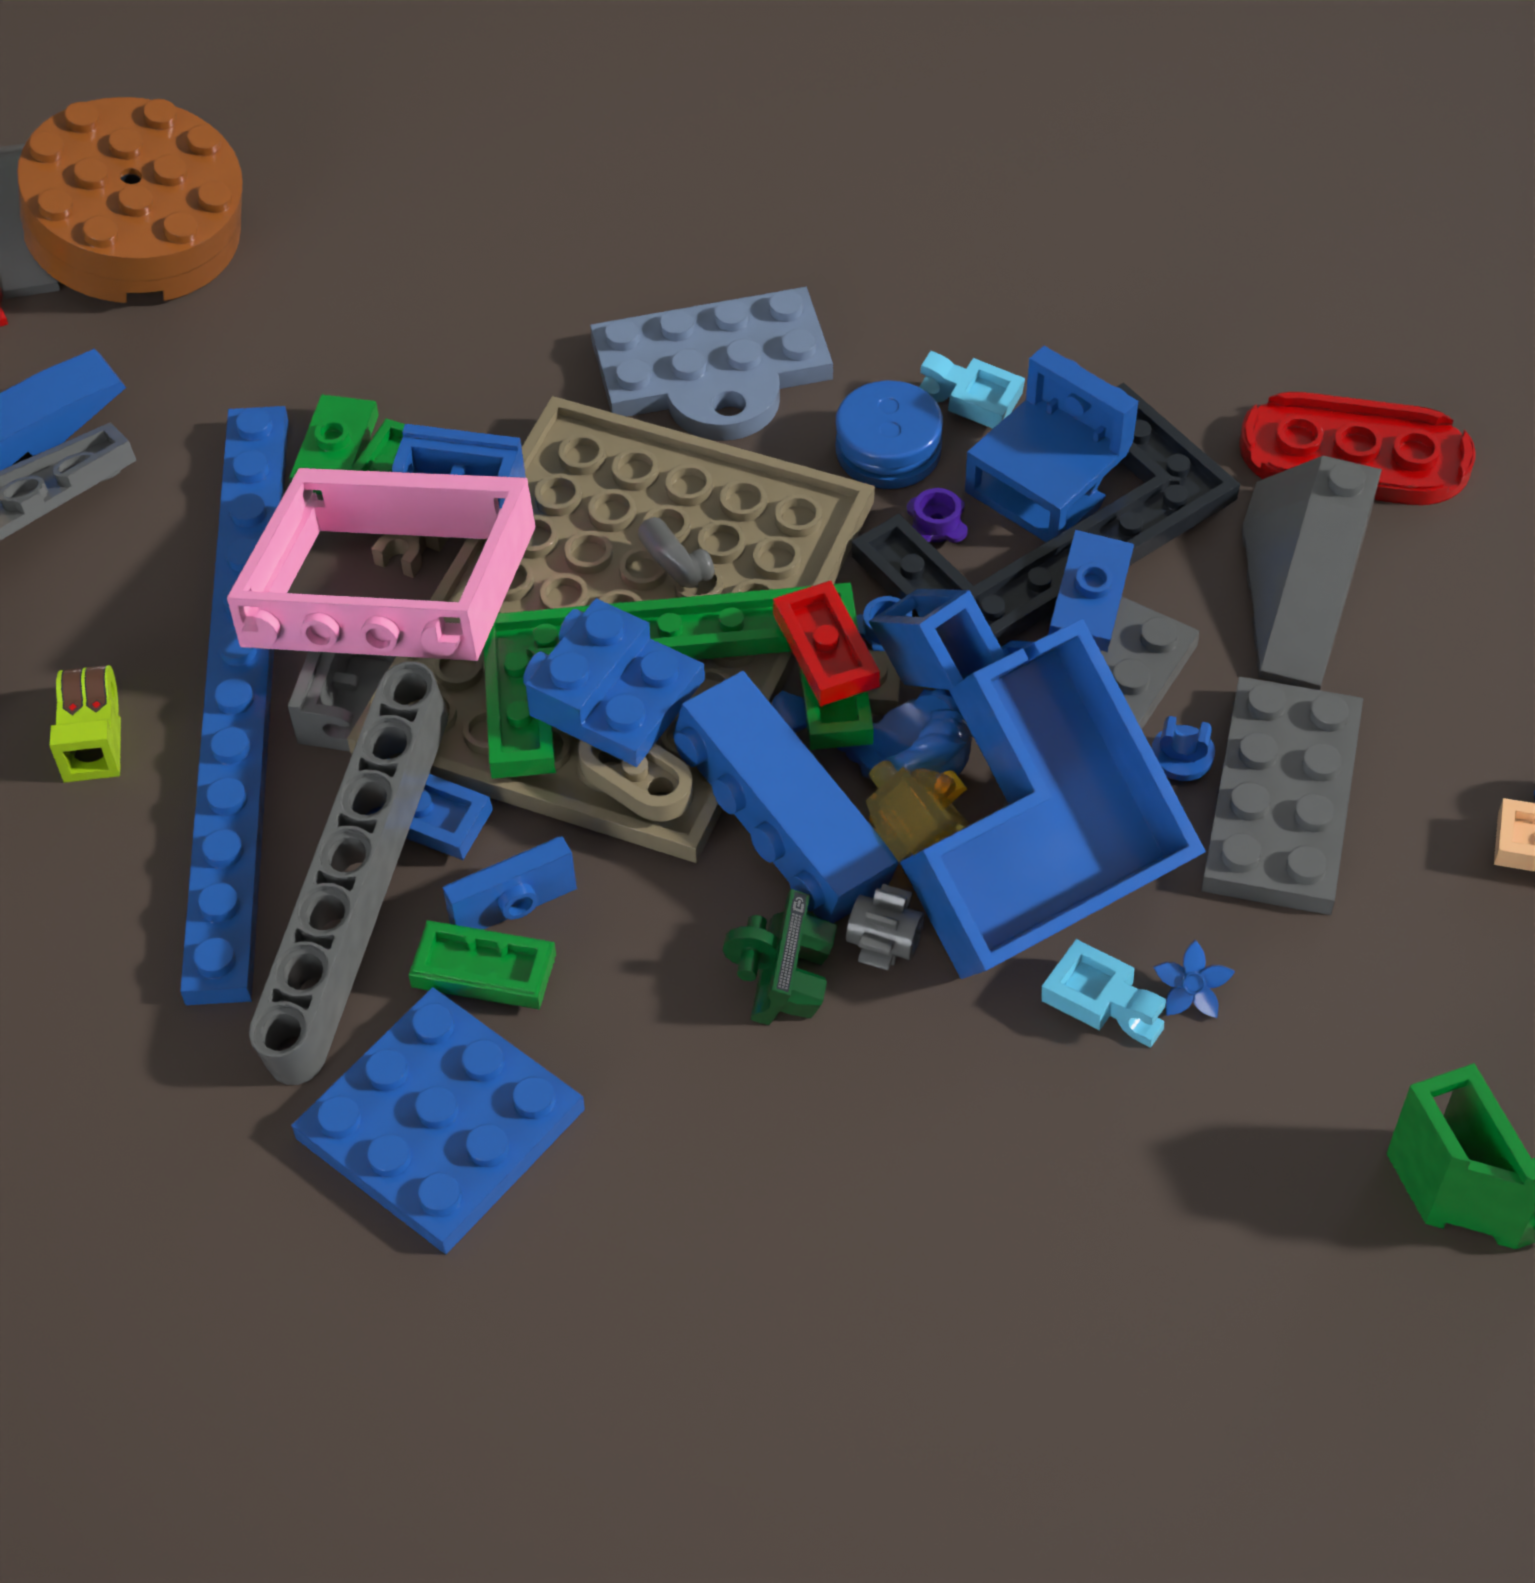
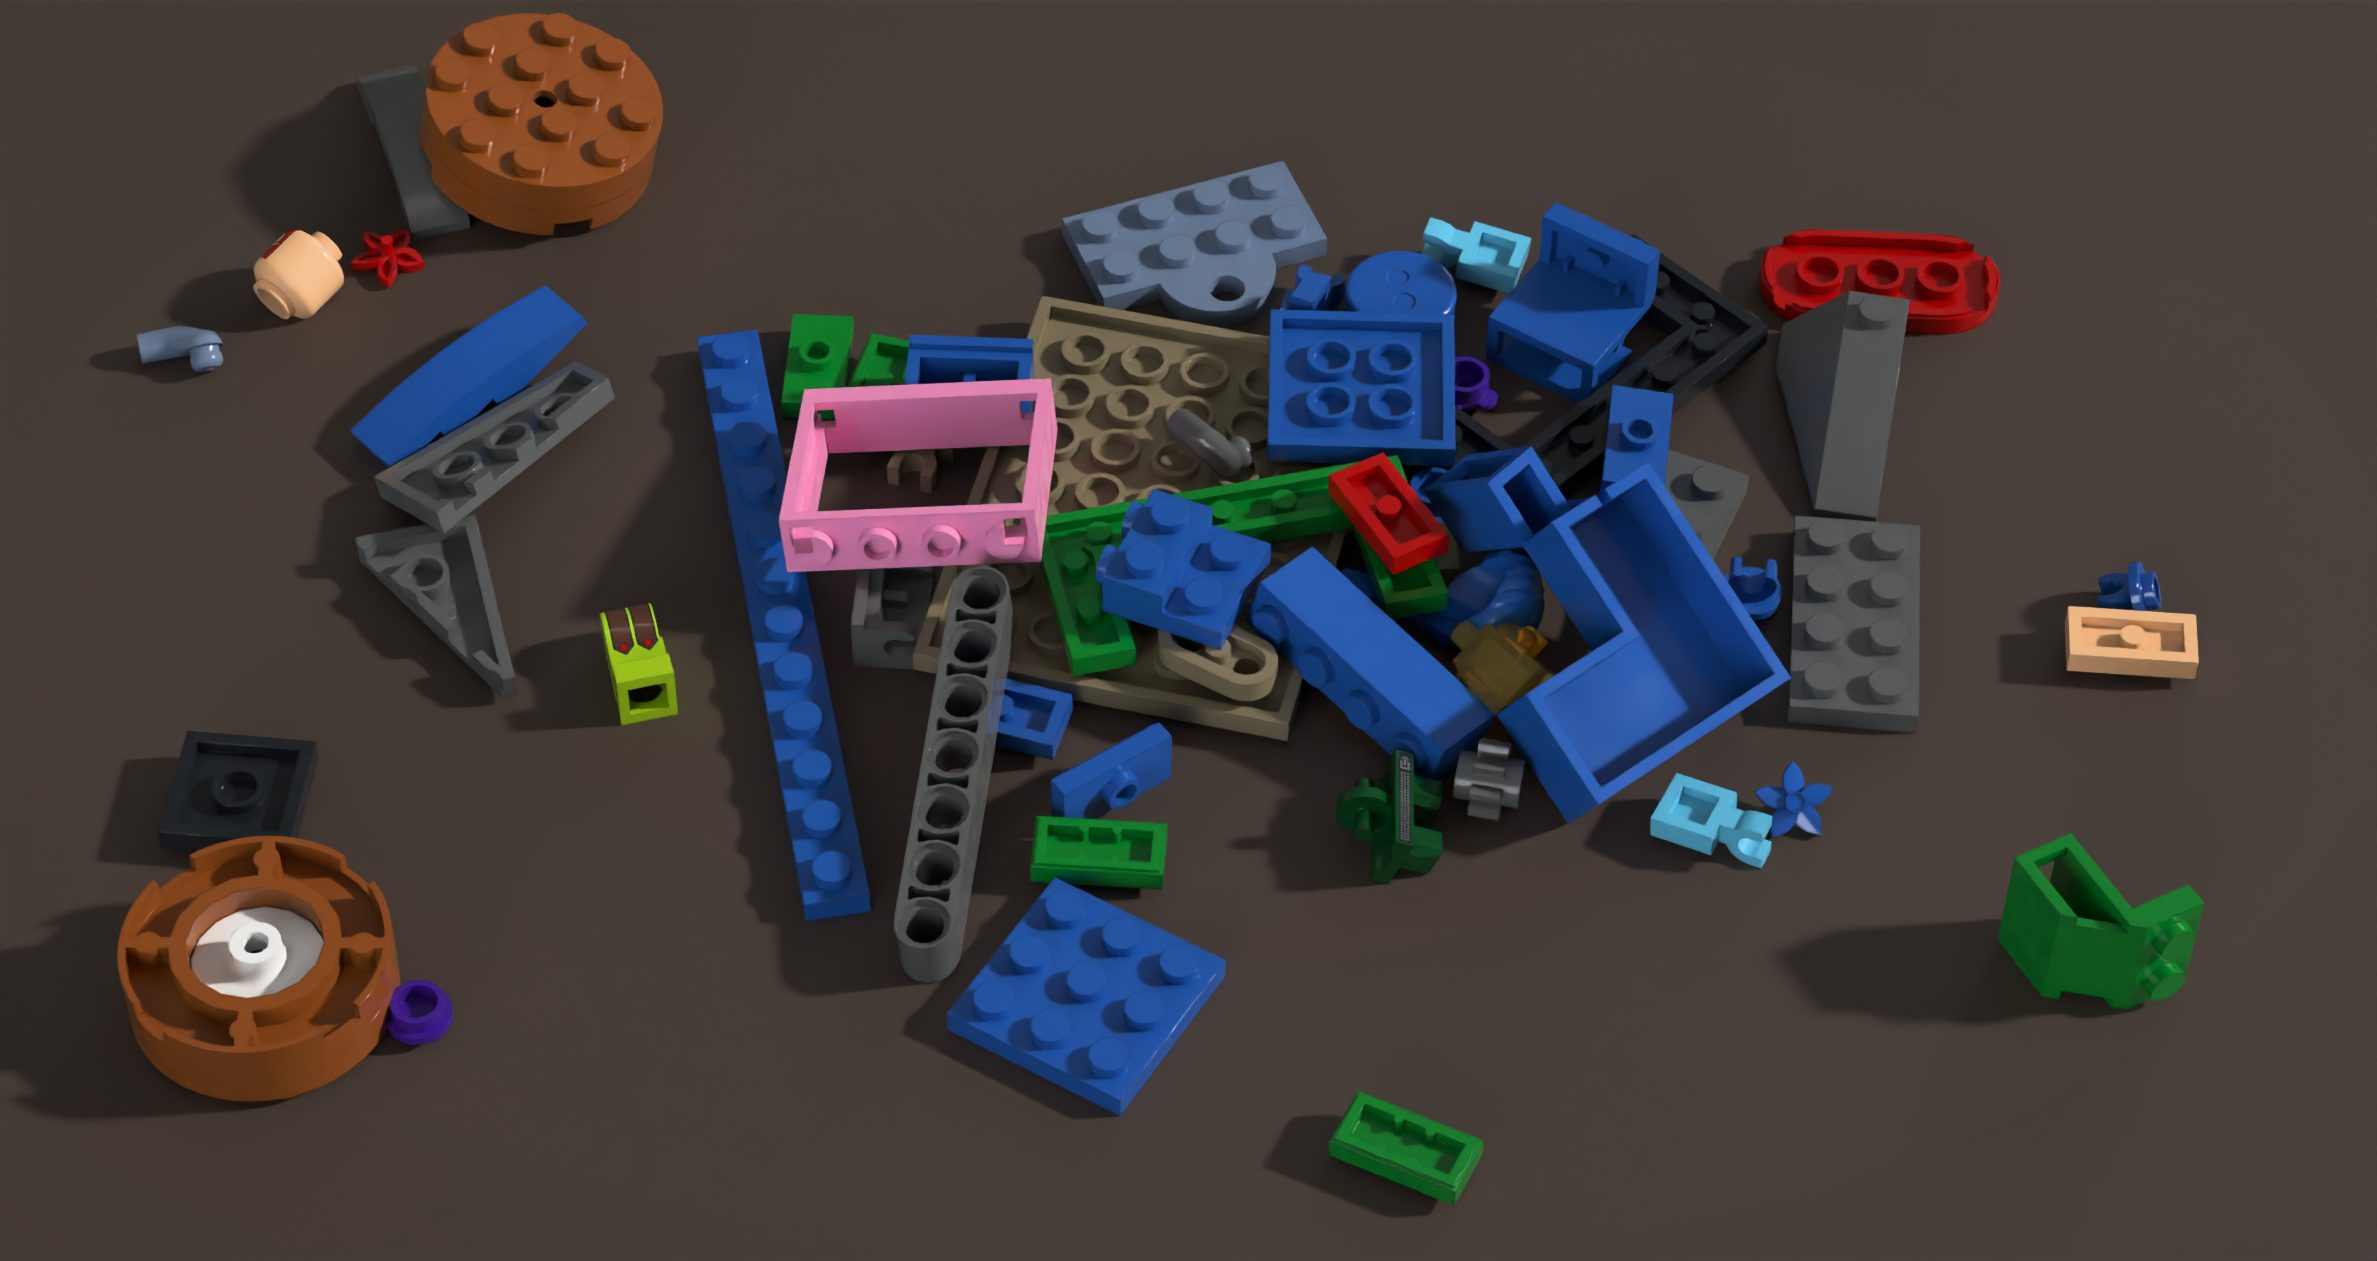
camera: 10 degrees left, 5 degrees down
(725, 1330) = (1406, 1147): none -> green plate
(799, 425) = (1314, 291): none -> blue plate
(830, 511) = (1361, 387): none -> blue plate

